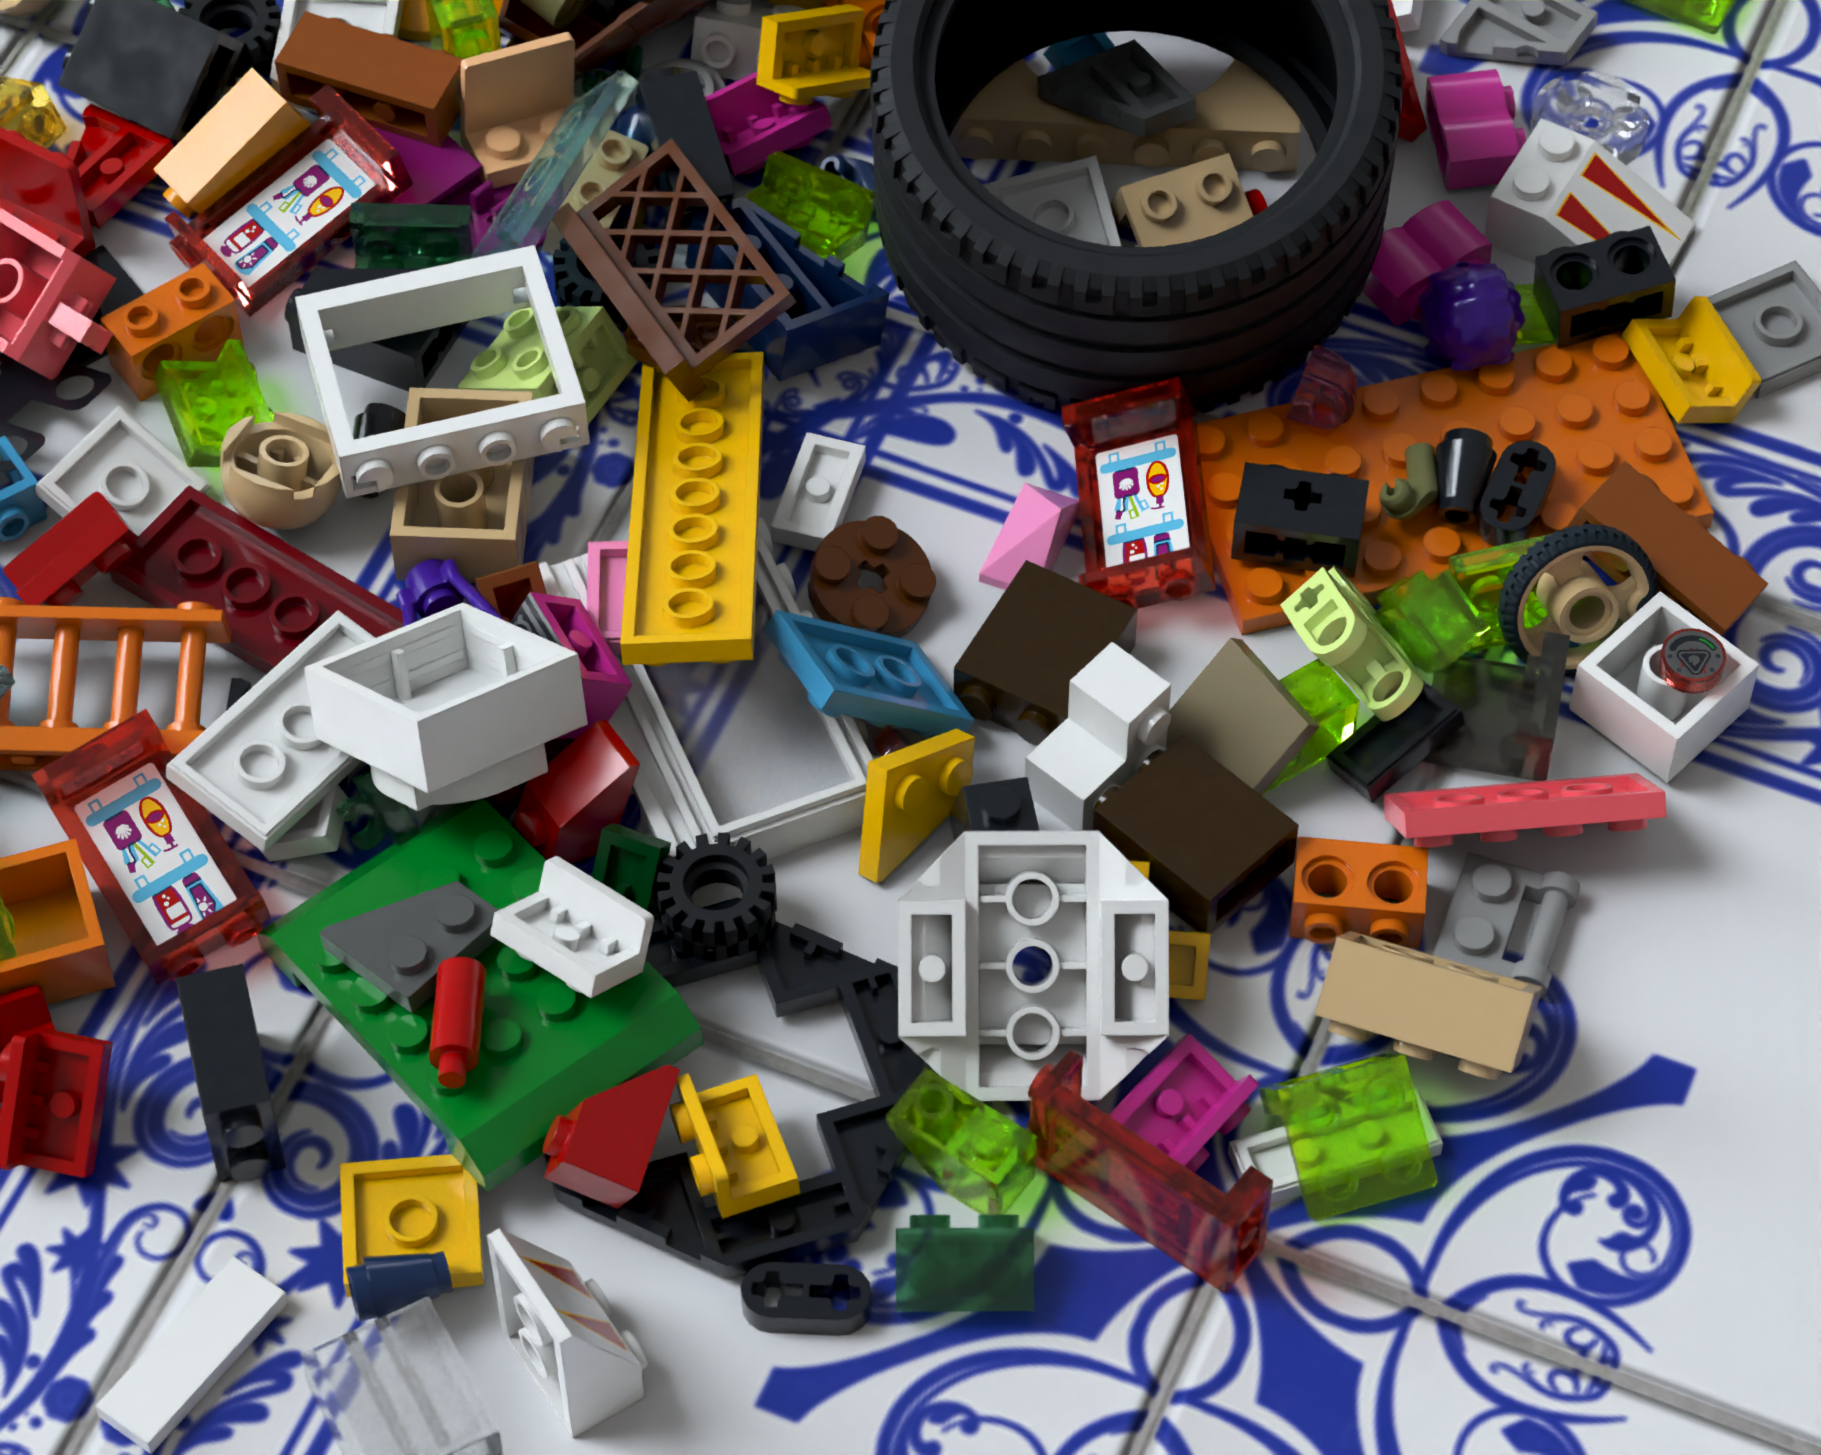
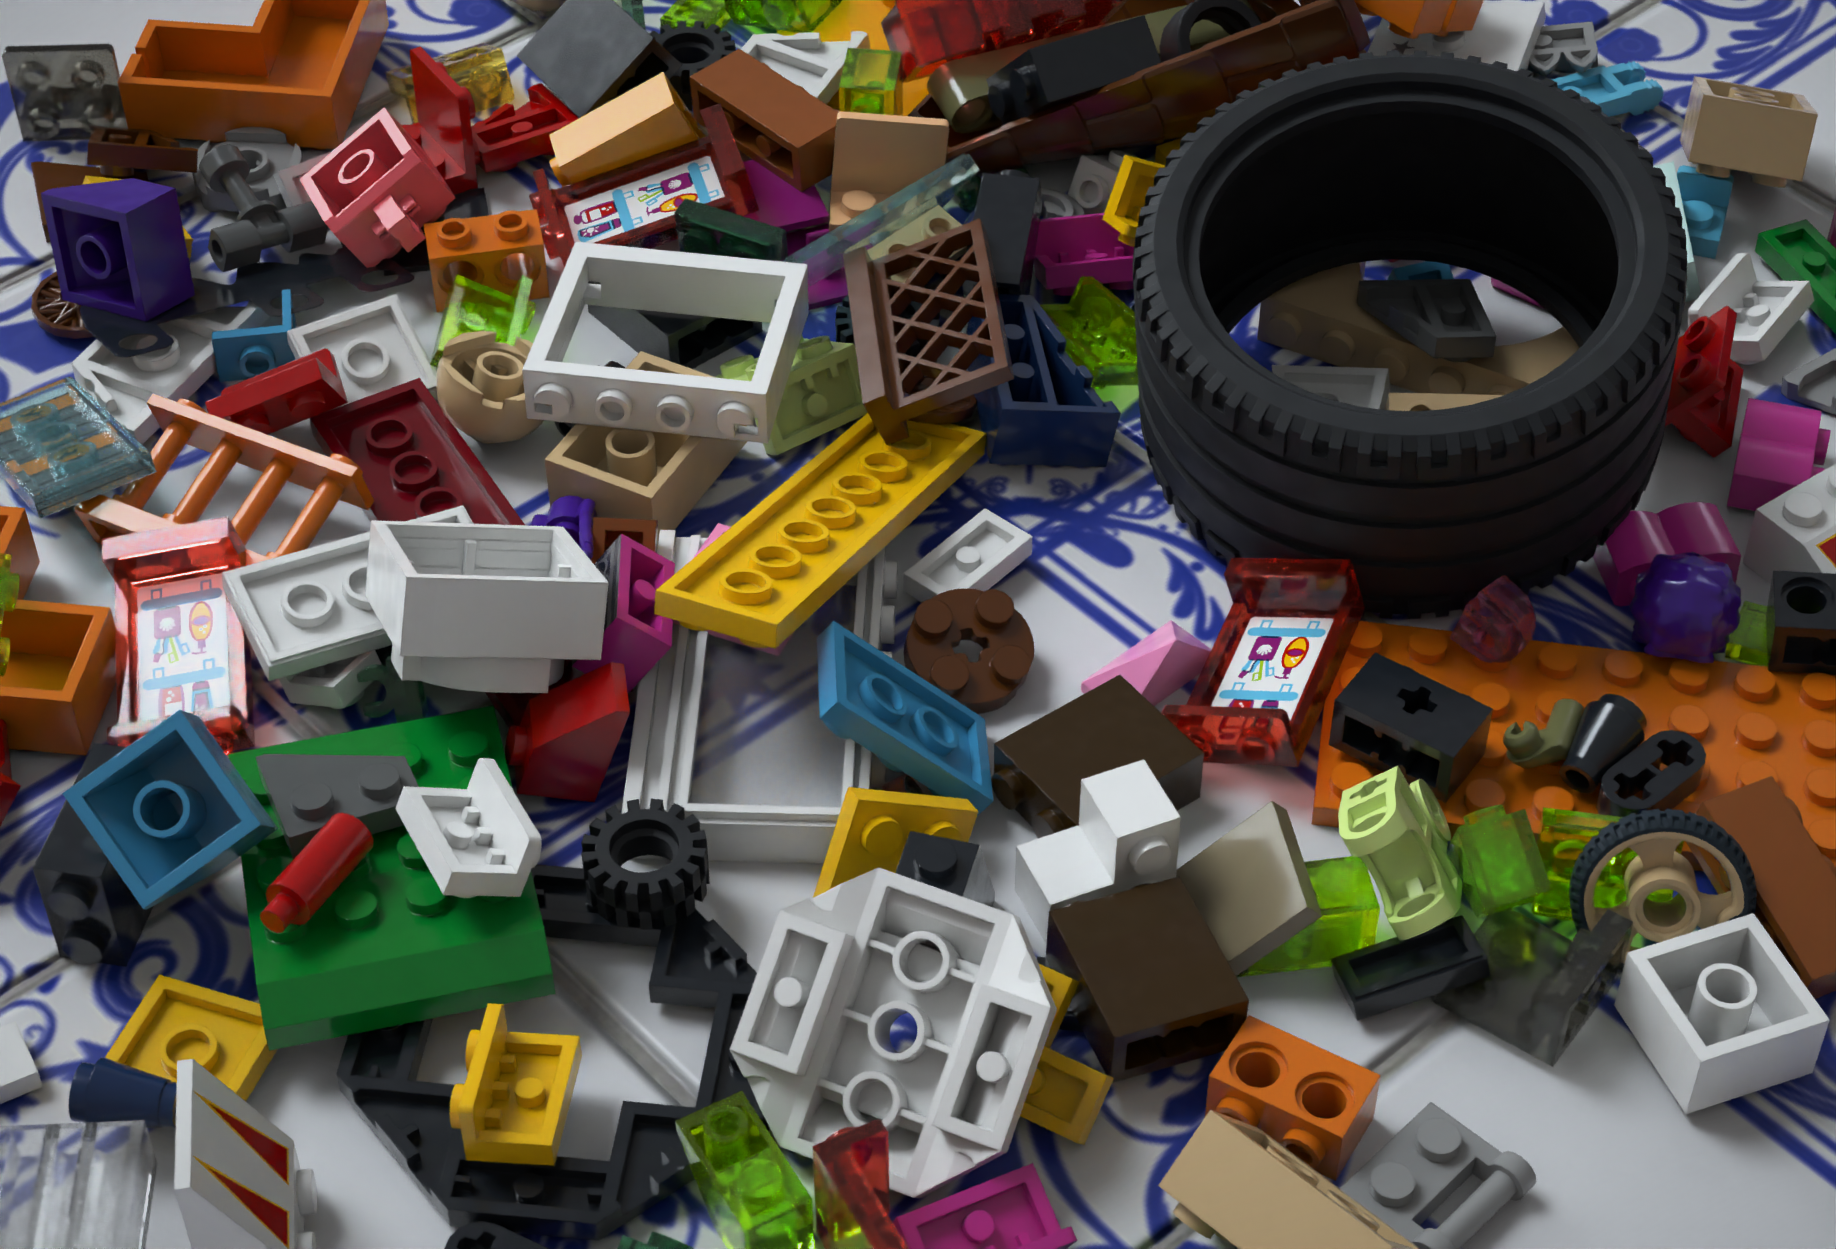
camera: 25 degrees right, 10 degrees down
(297, 1015) = (170, 809): none -> dark azure slope
(610, 1138) = (398, 1035): red slope -> none
(630, 864) = (572, 806): dark green bracket -> none
(1503, 809) = (1474, 1068): coral plate -> none
(1692, 661) = (1752, 988): tile -> none

